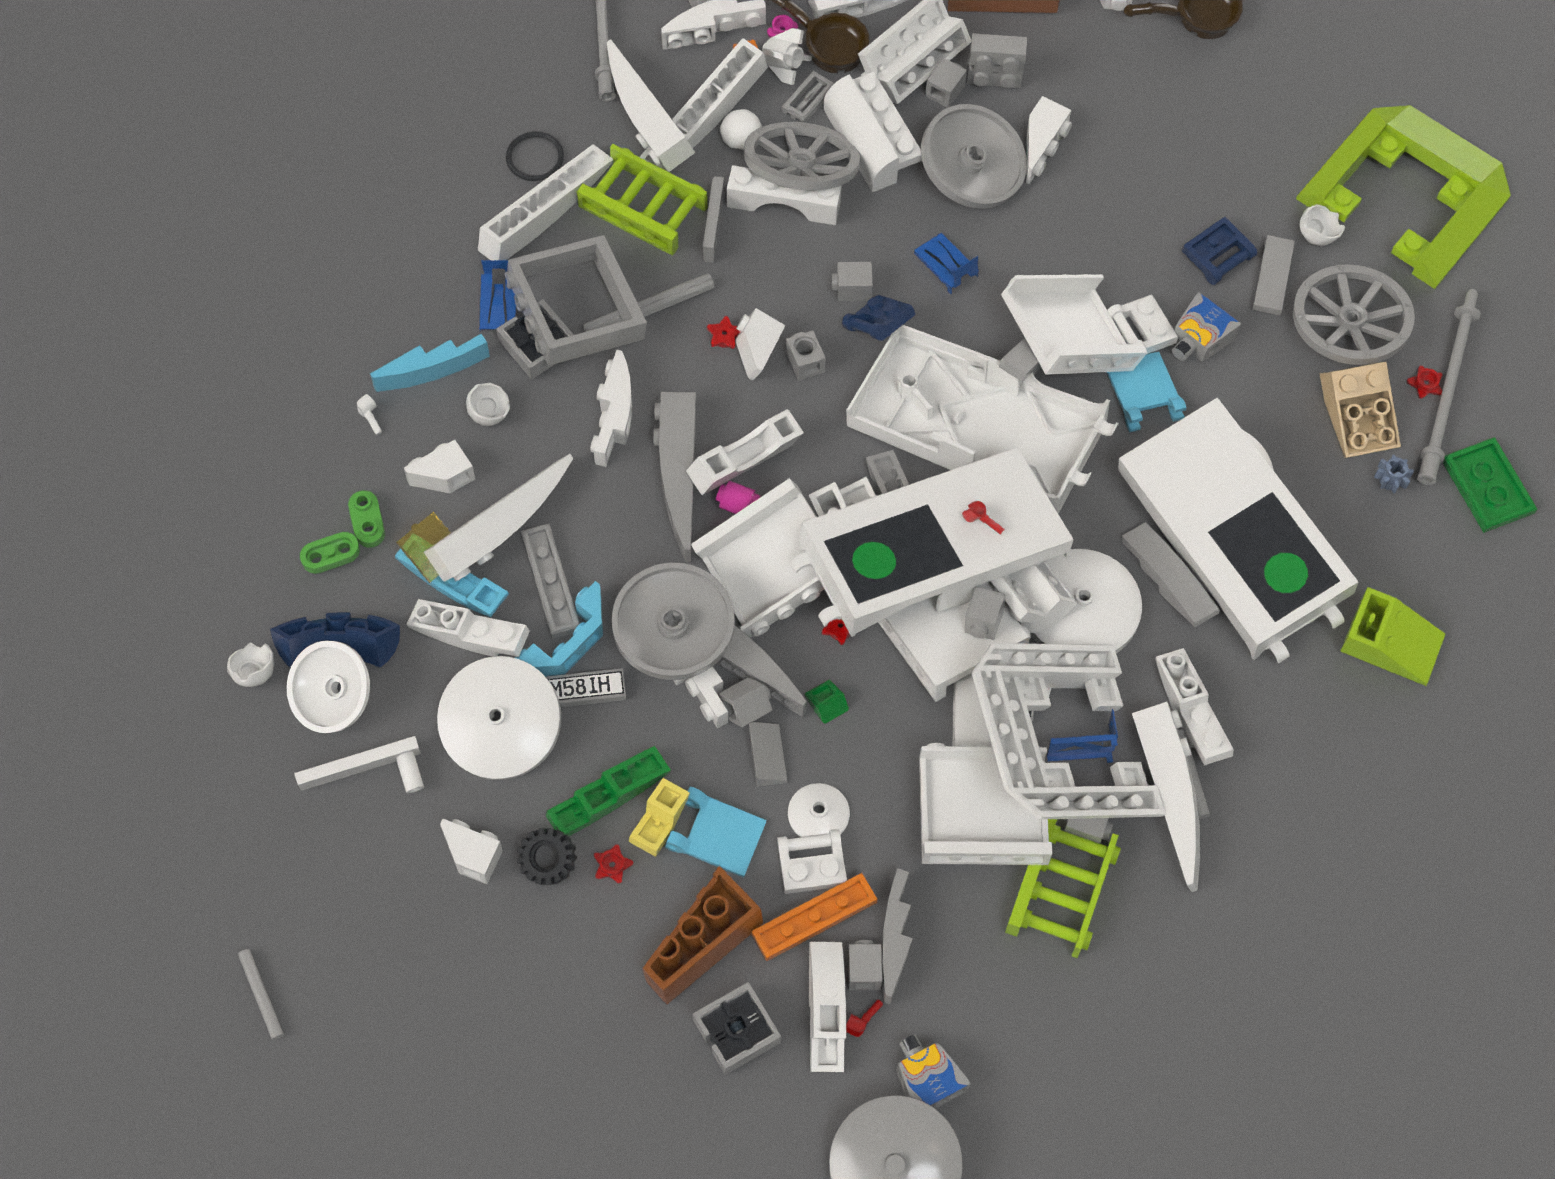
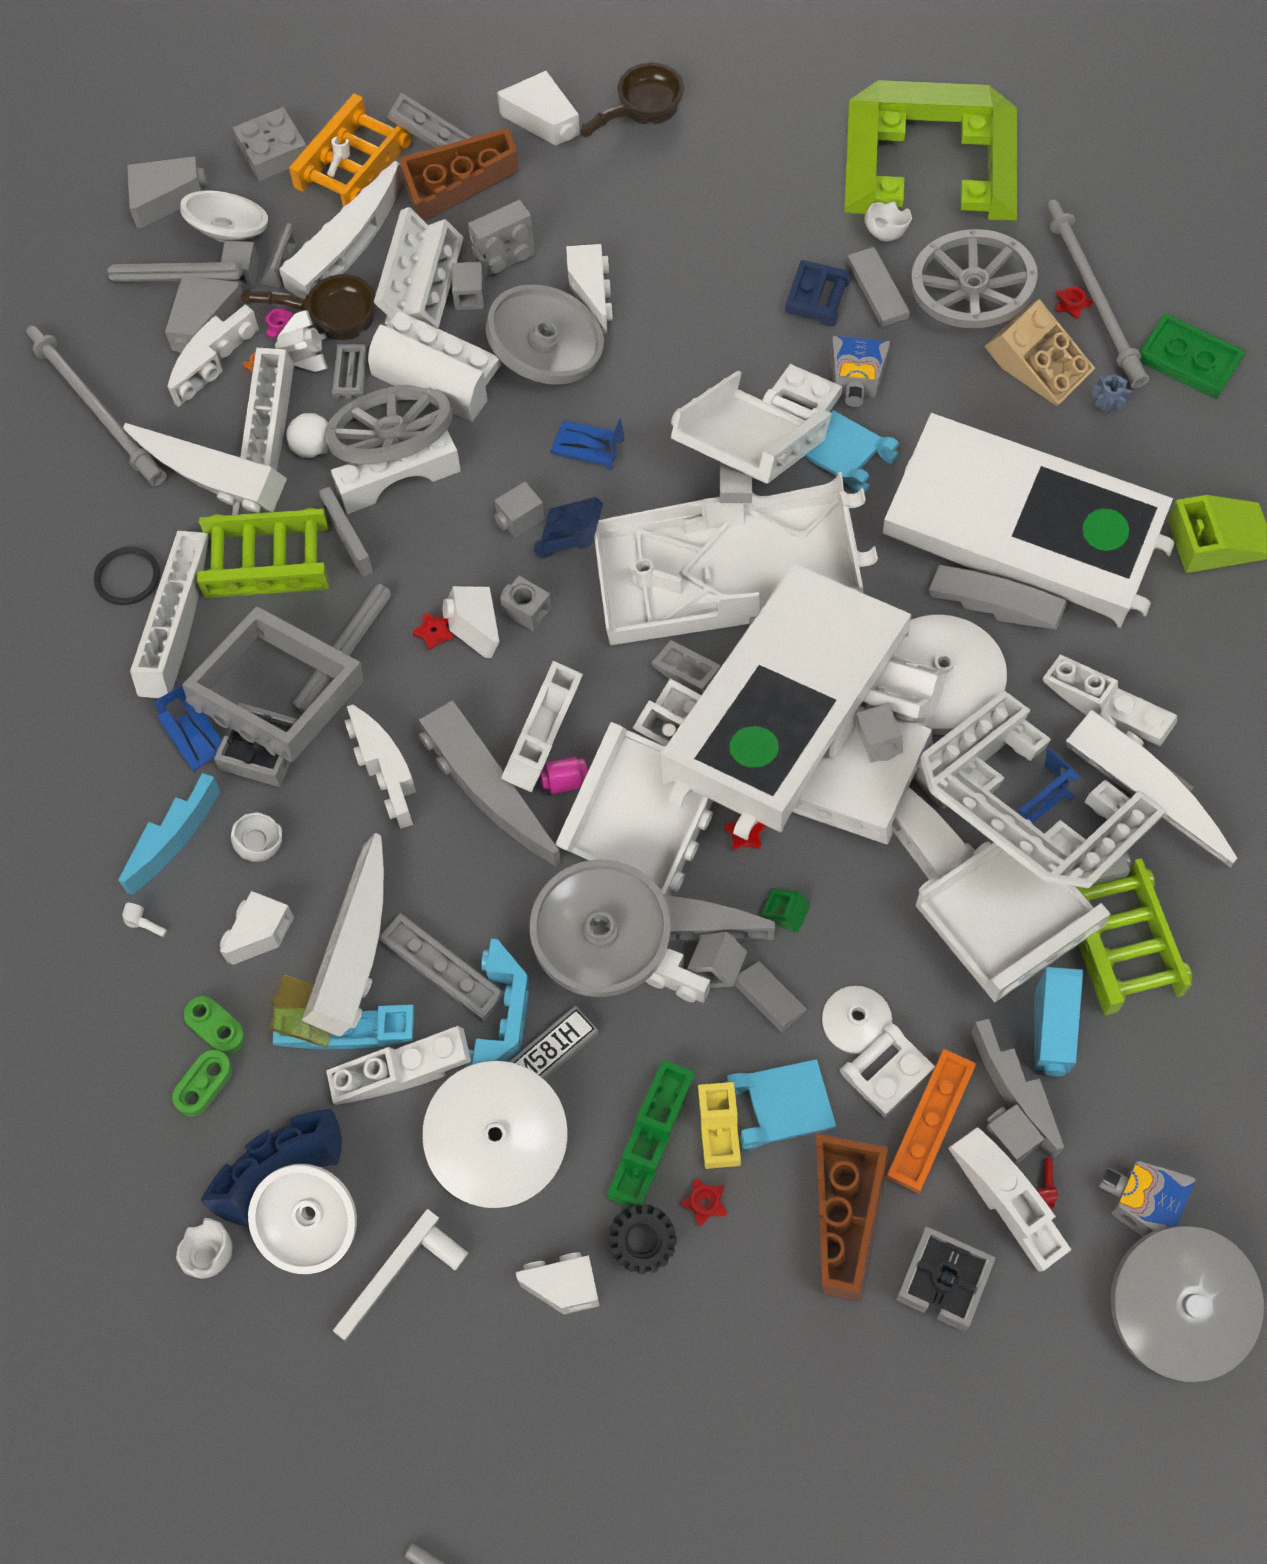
camera: 30 degrees left, 0 degrees up
(959, 908) = (1057, 1020): none -> medium azure slope
(978, 511) = (812, 641): red hand -> none

